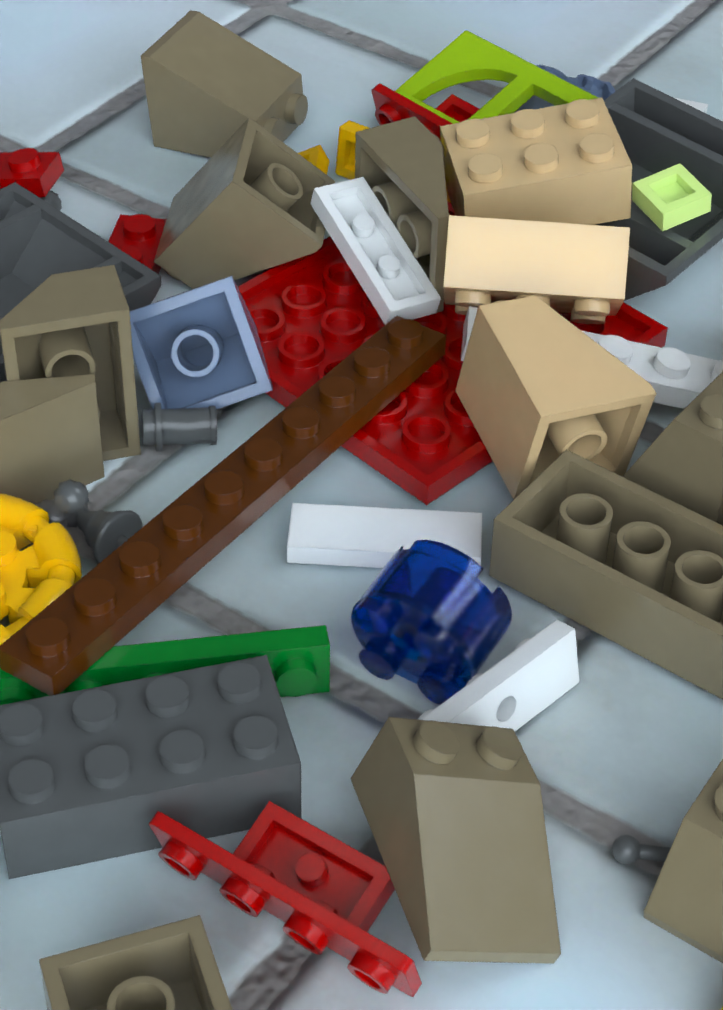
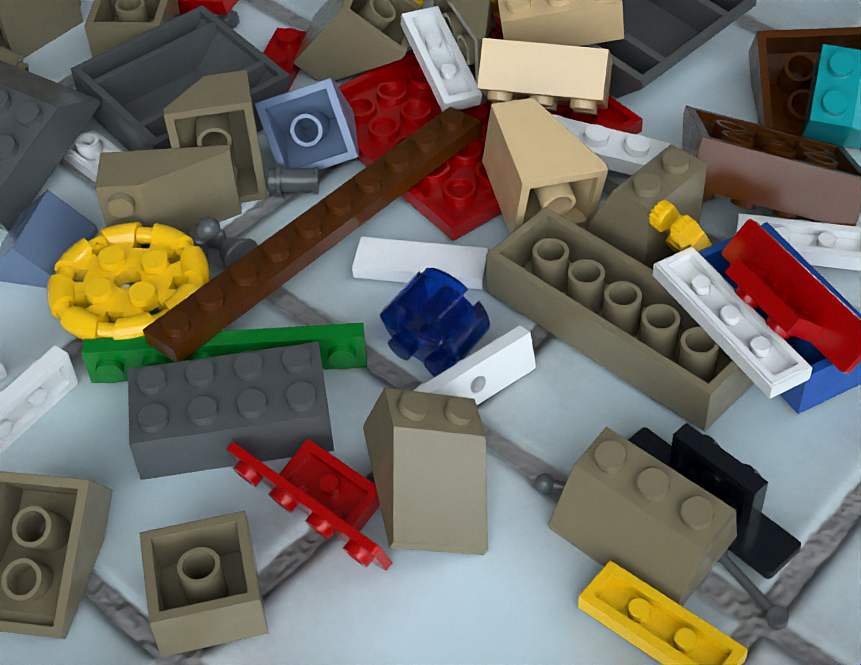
camera: 10 degrees right, 5 degrees up
(671, 197) = (652, 24): yellowish green plate -> none

